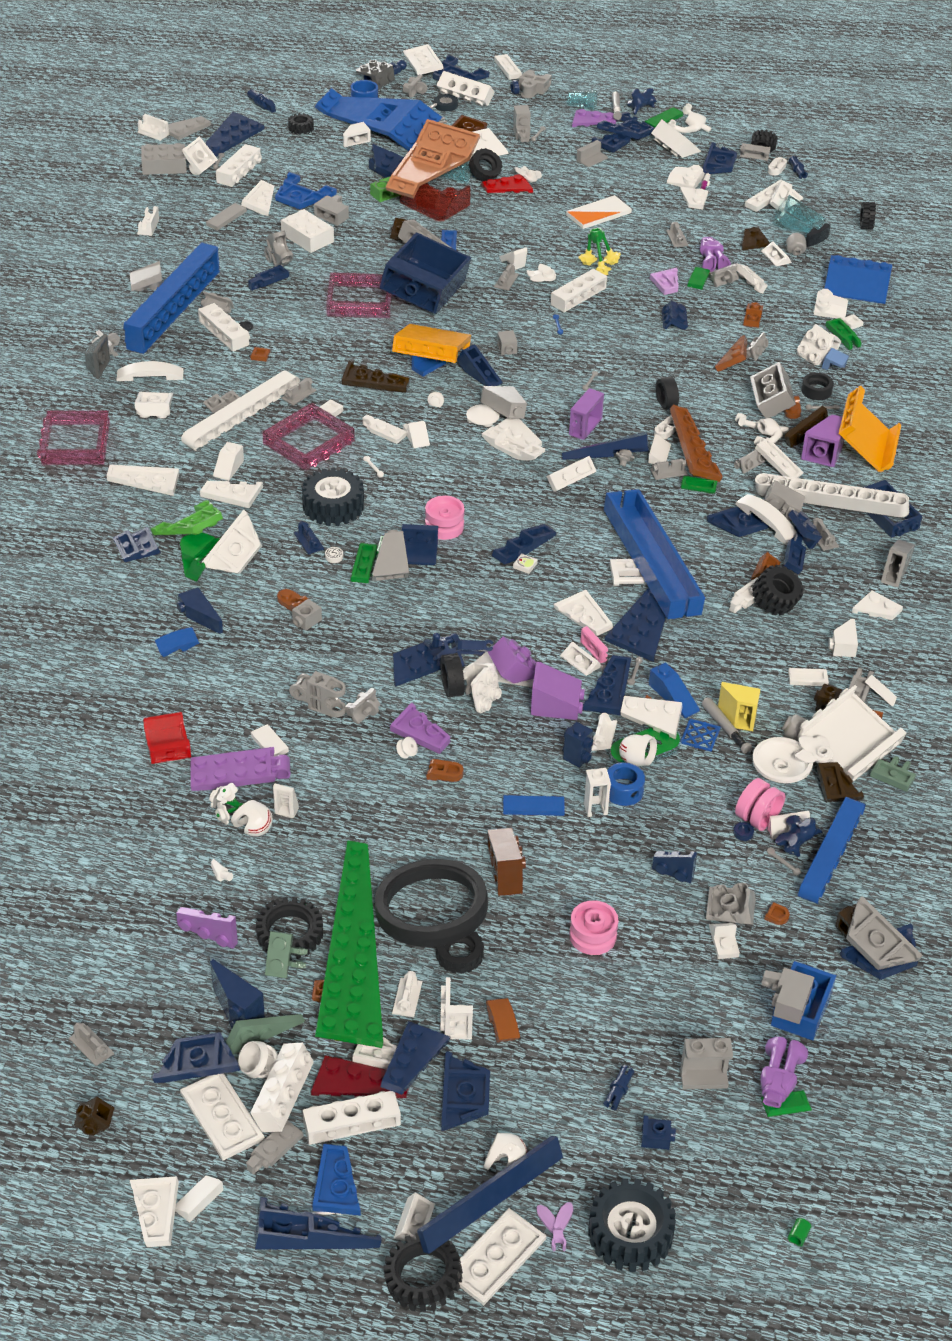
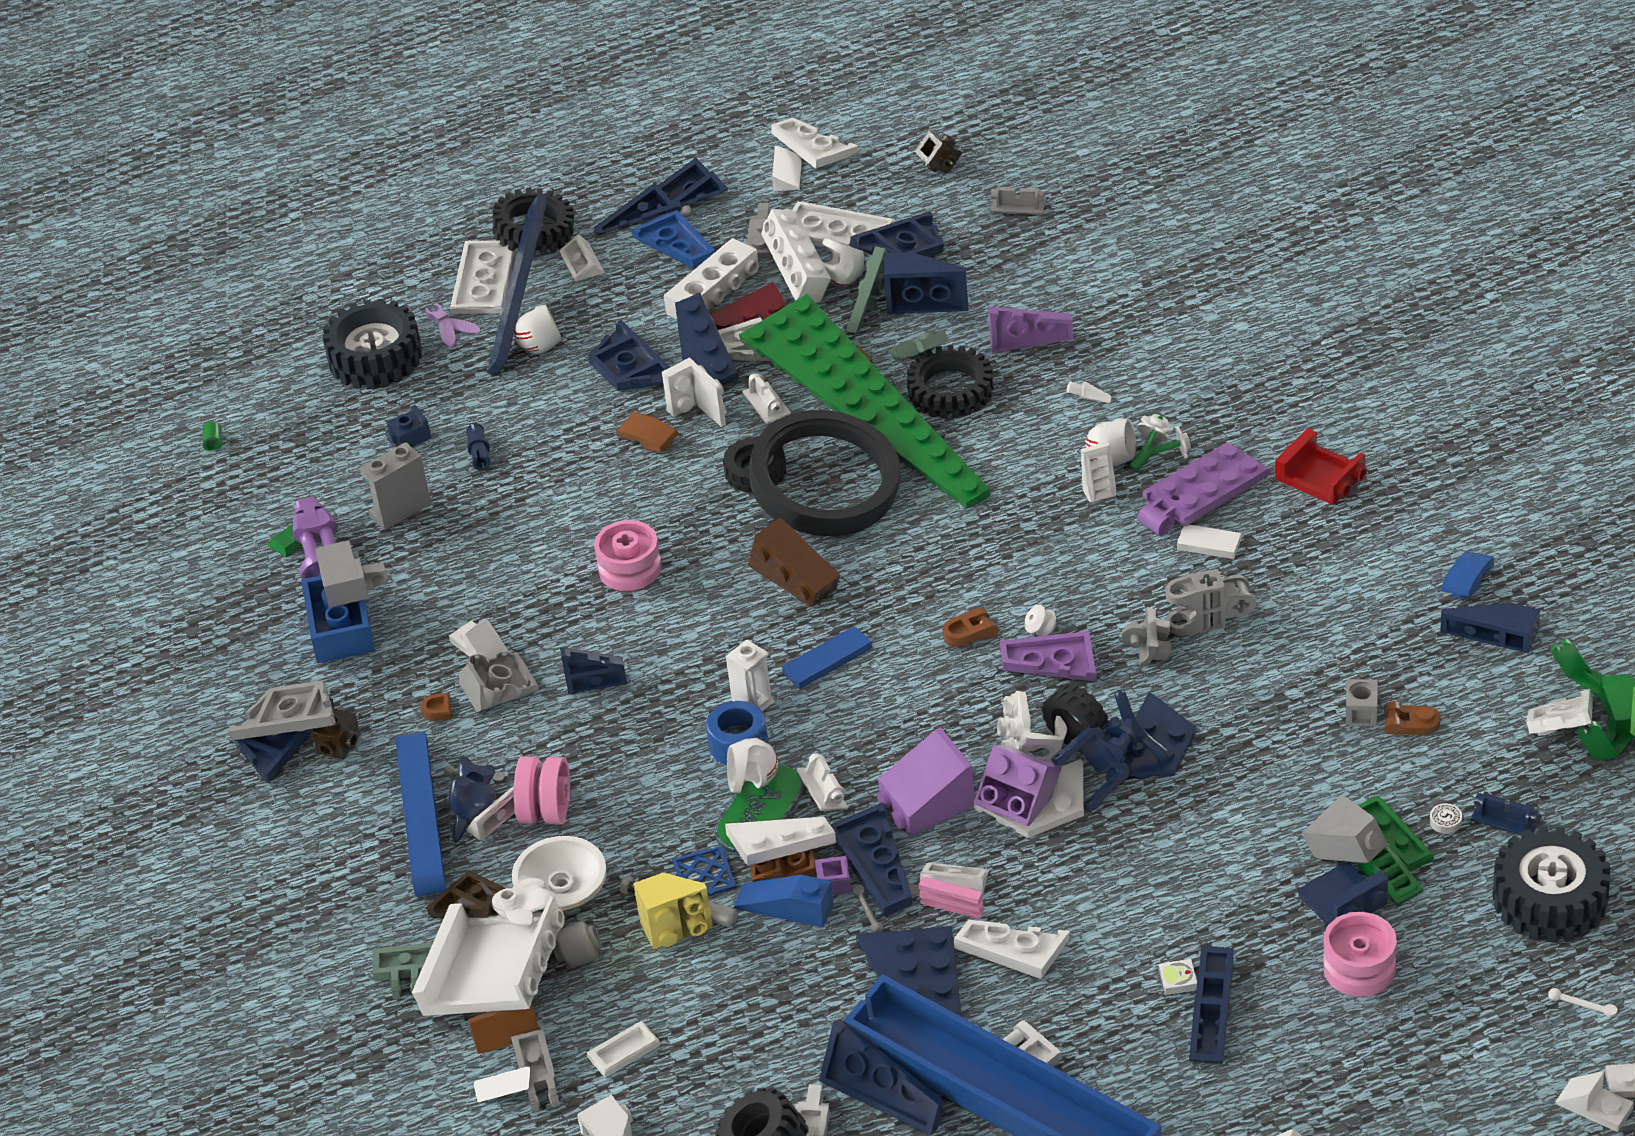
camera: 150 degrees right, 0 degrees up
(578, 744) = (831, 729): dark blue brick -> none
(639, 688) = (836, 871): none -> medium lavender slope
(713, 605) = (875, 1079): none -> dark blue wing
(825, 695) = (563, 1010): dark brown brick -> none

